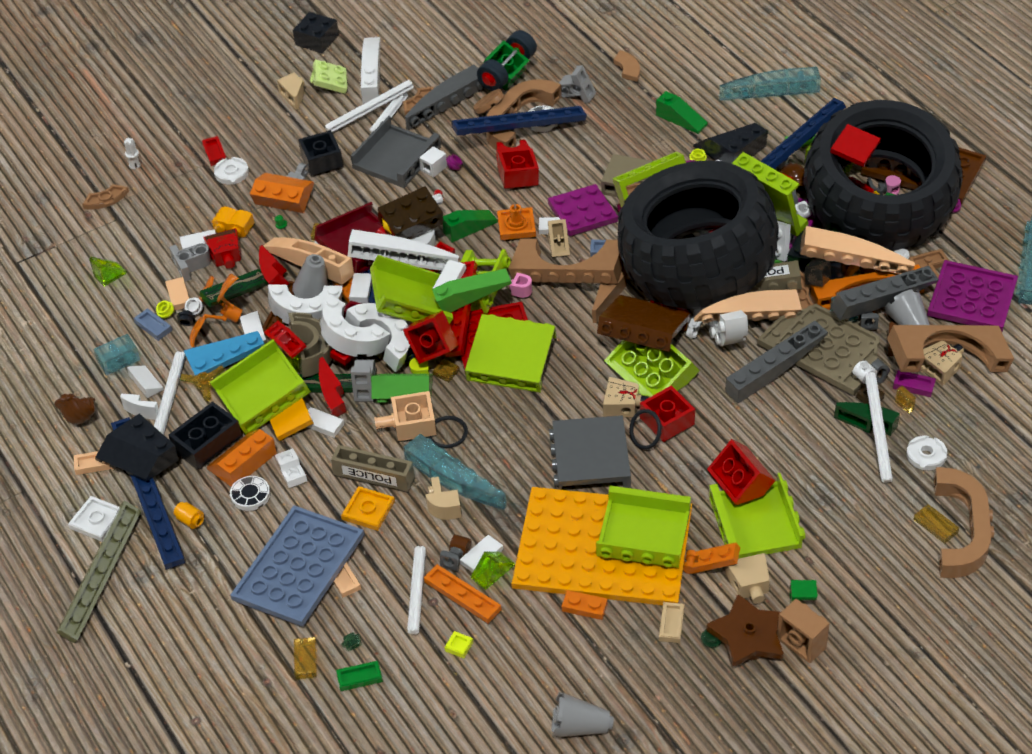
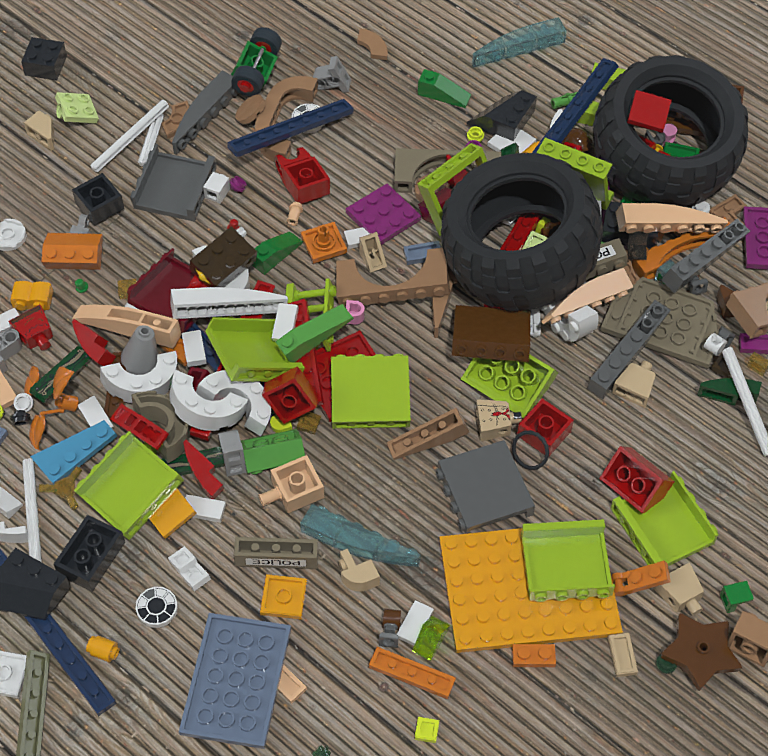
camera: 20 degrees left, 10 degrees up
(244, 457) = (135, 567): orange slope -> none
(370, 69) = (115, 91): white slope -> none
(416, 590) = (364, 679): white axle -> none
(456, 443) = (351, 491): black tyre -> none
(500, 192) = (295, 210): none -> light nougat pin
(558, 399) = (429, 435): none -> medium nougat slope
(773, 394) = (635, 383): none -> tan torso
(908, 309) = (734, 271): light grey cone -> none

